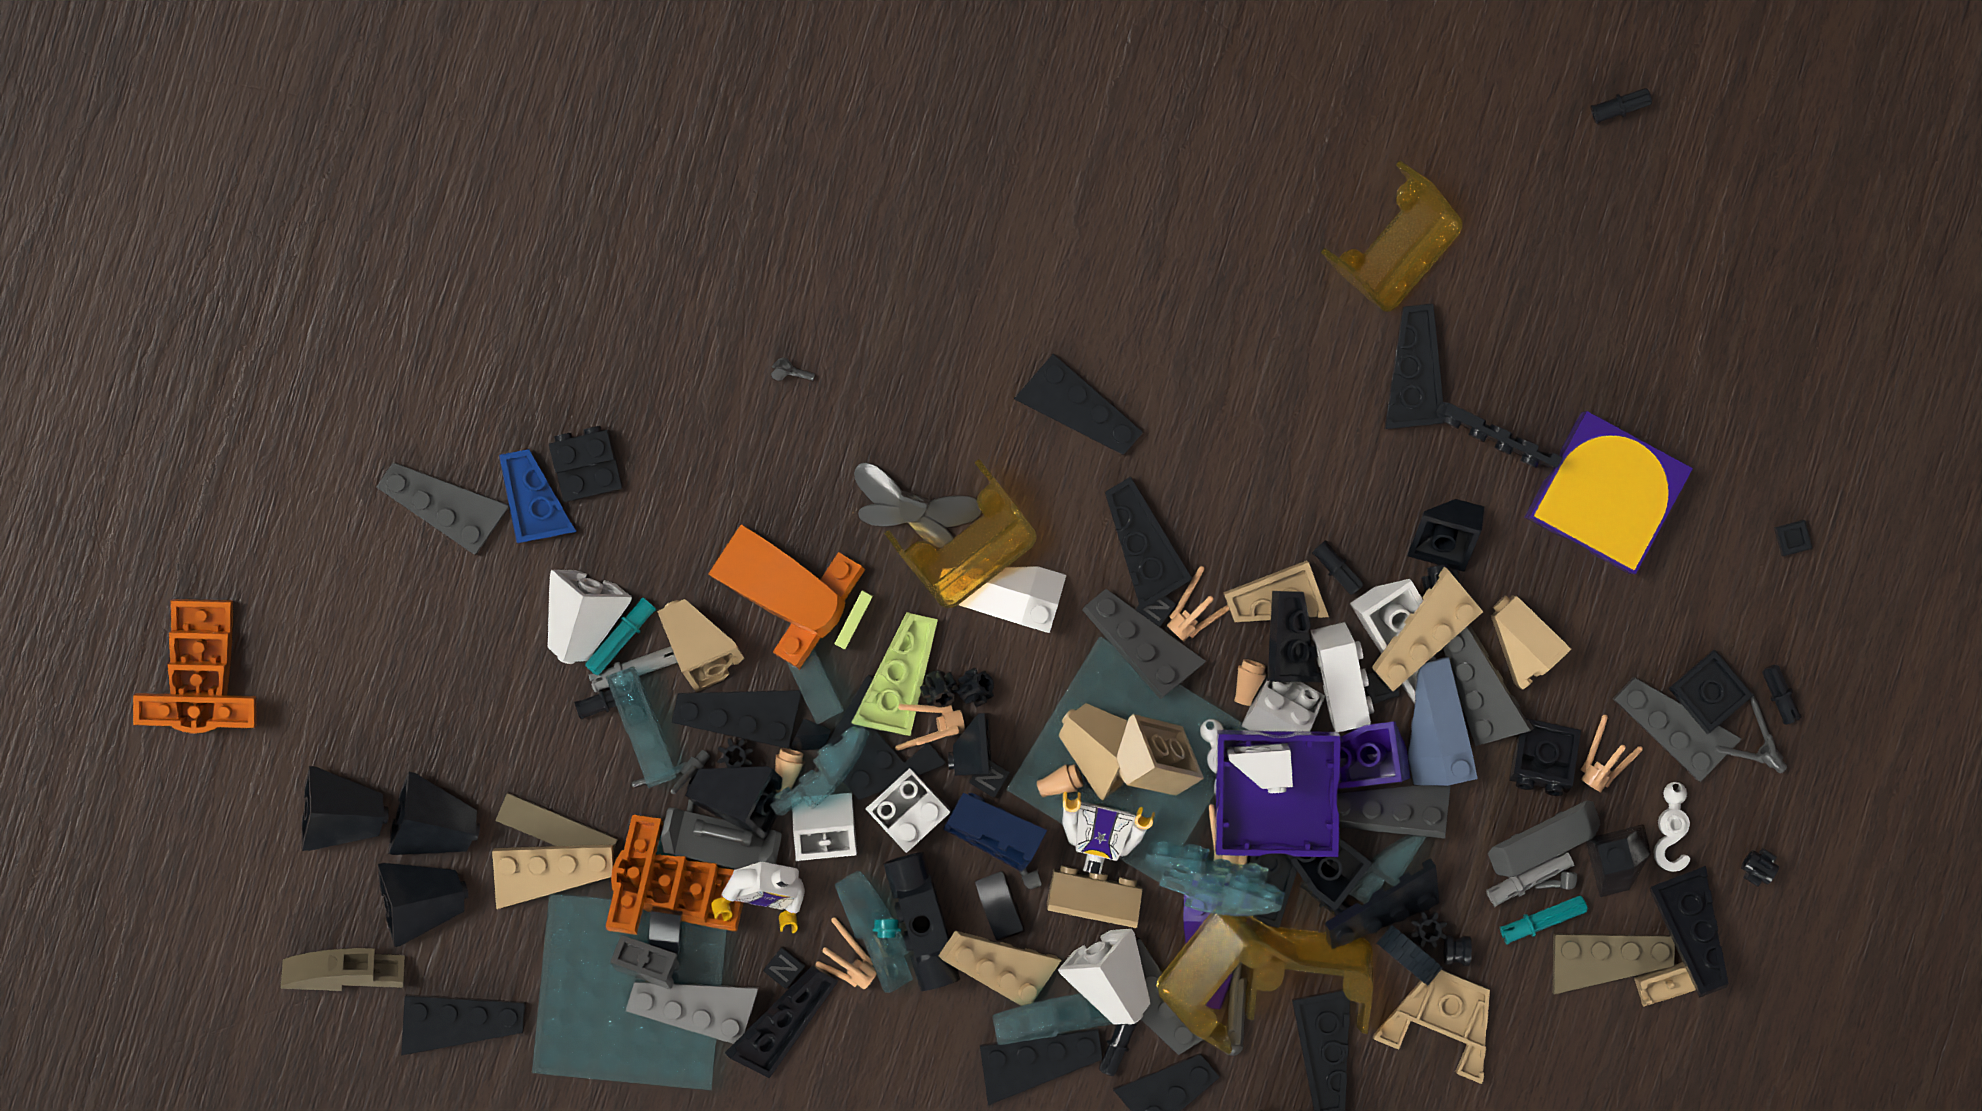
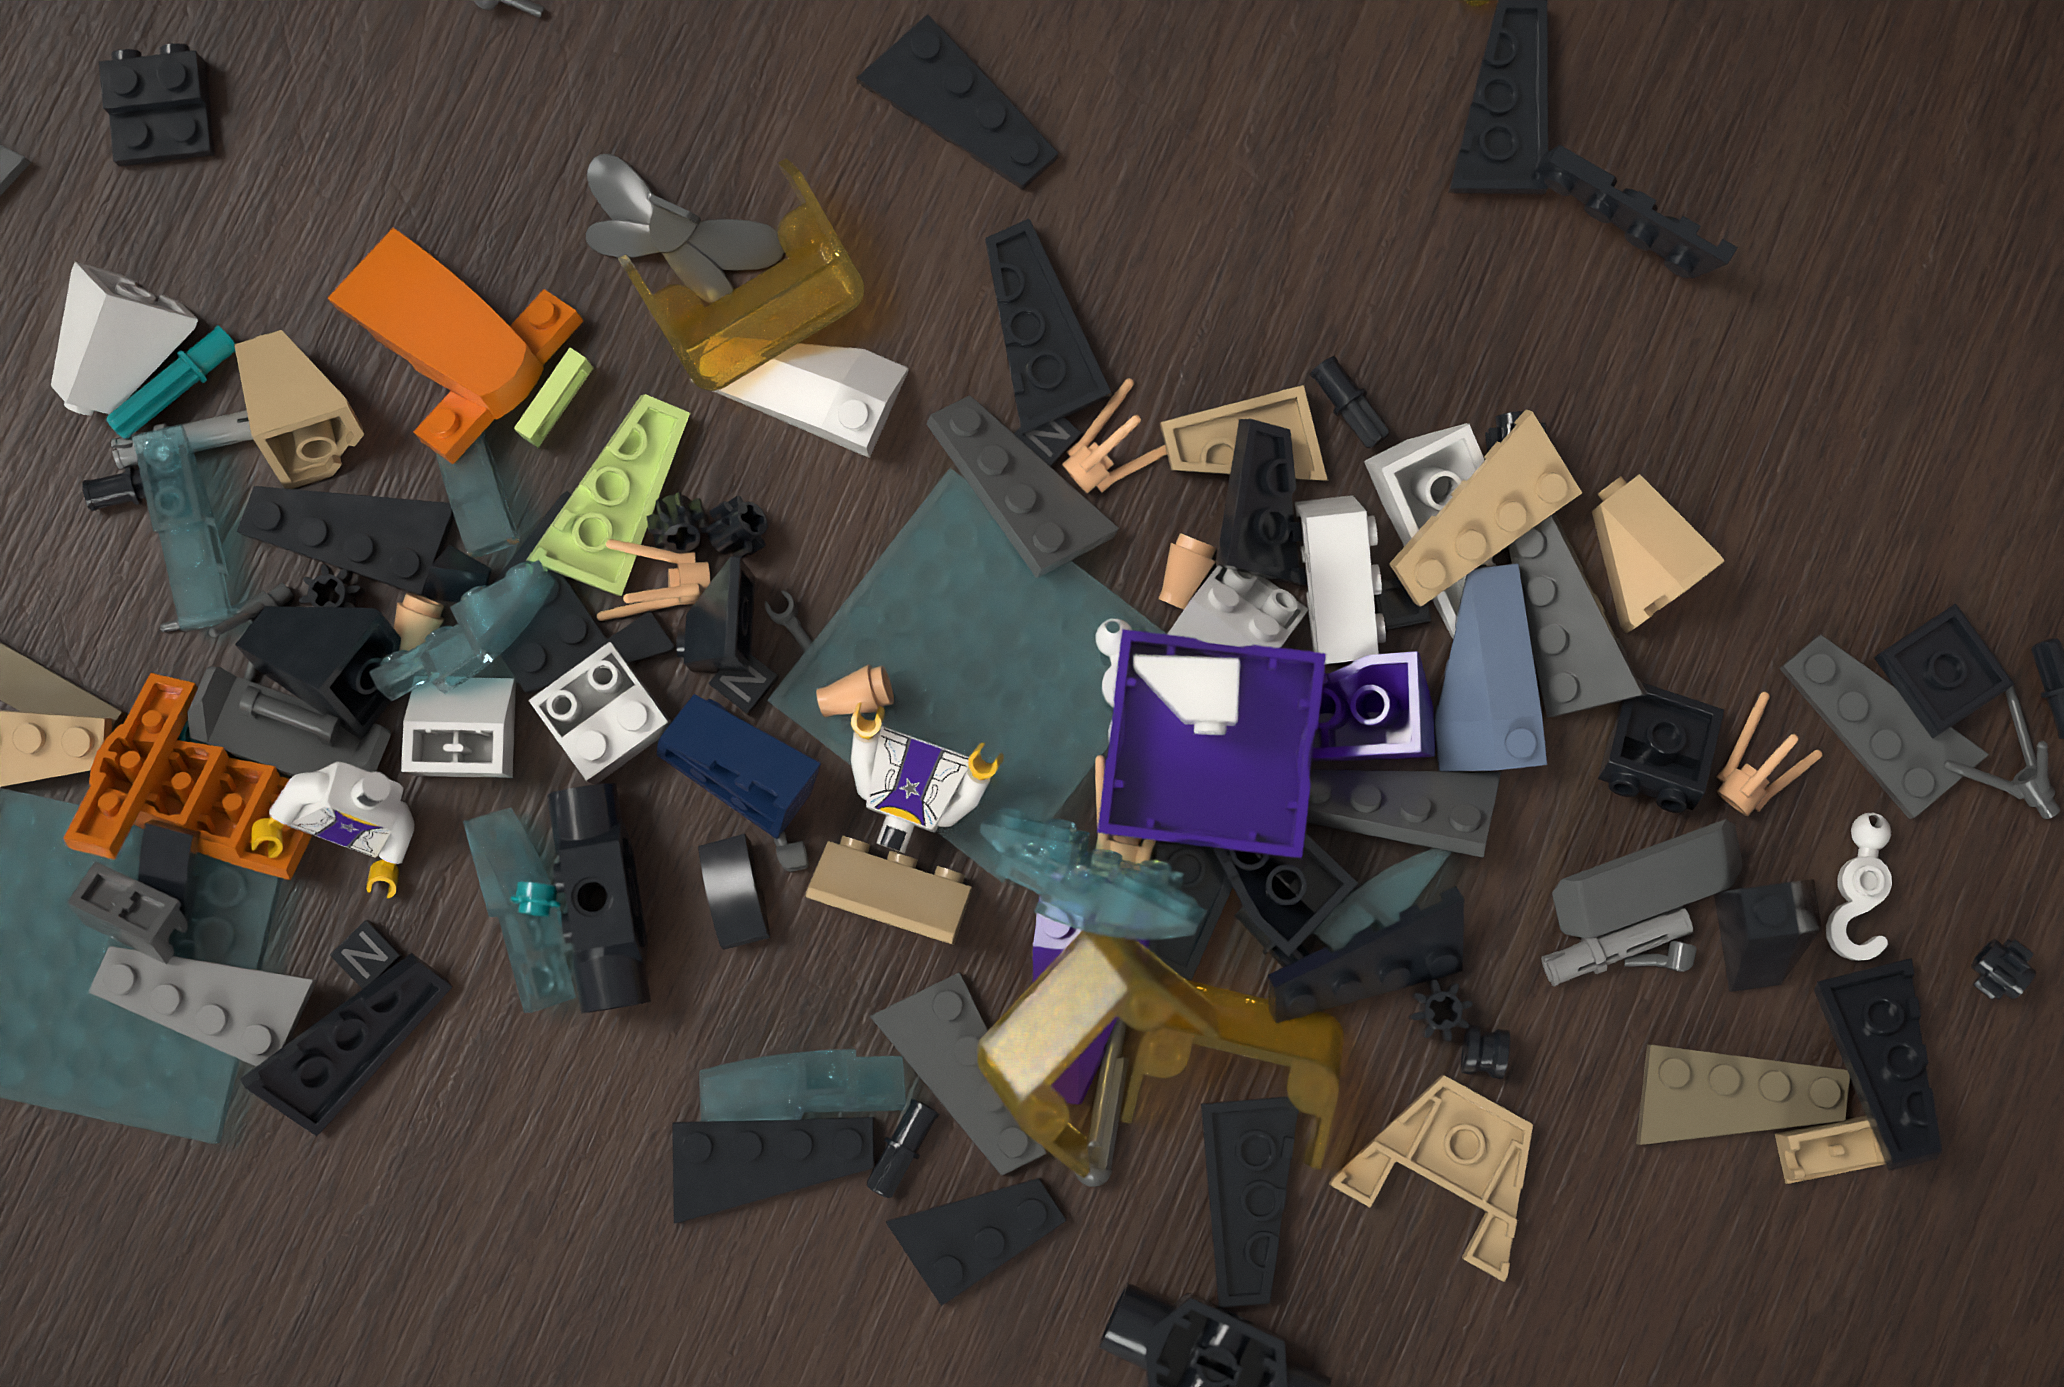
camera: 10 degrees right, 5 degrees down
(531, 501) = (61, 152): blue wing -> none
(860, 972) = (490, 975): light nougat plant -> none
(1004, 968) = (729, 994): tan wing -> none
(1014, 739) = (790, 620): none -> dark grey hand
(1094, 742) = (935, 642): tan slope -> none
(1110, 976) = (901, 1027): white slope -> none
(1157, 756) = (1016, 660): tan slope -> none
(1409, 955) = (1405, 1047): black wheel -> none
(1448, 534) = (1534, 365): black slope -> none
(1541, 920) = (1632, 1017): teal axle -> none
(1609, 492) = (1805, 328): yellow tile -> none

